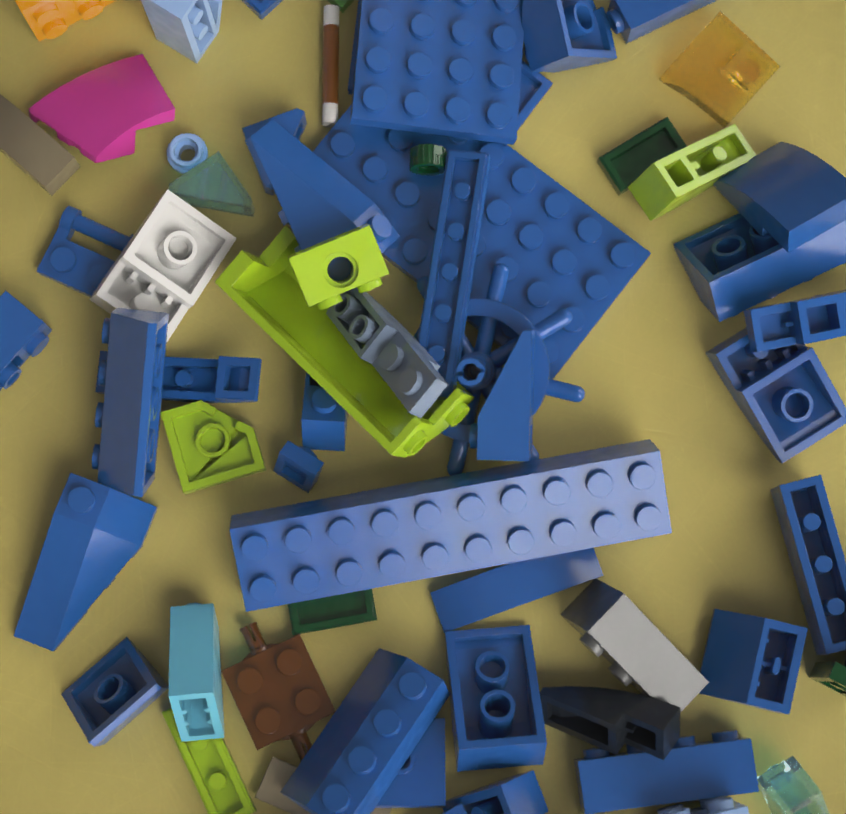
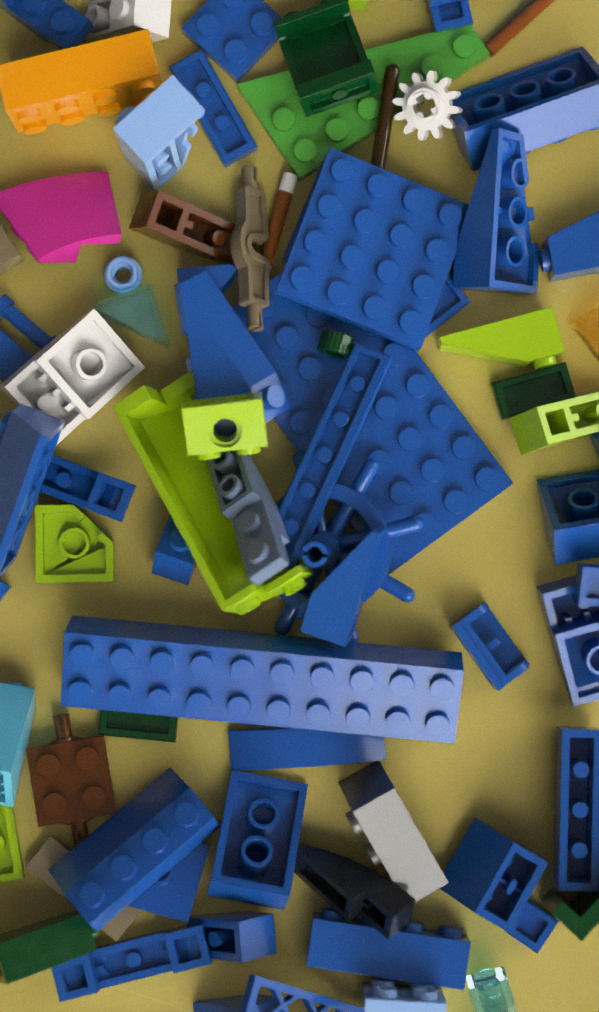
camera: 20 degrees right, 5 degrees up
(244, 86) = (183, 226): none -> reddish brown slope
(298, 466) = (144, 587): blue plate -> none
(306, 73) = (252, 267): none -> dark tan piece
(607, 110) = (512, 341): none -> lime slope
(676, 427) = (489, 646): none -> blue hinge
(809, 707) = (533, 926): none -> blue tile

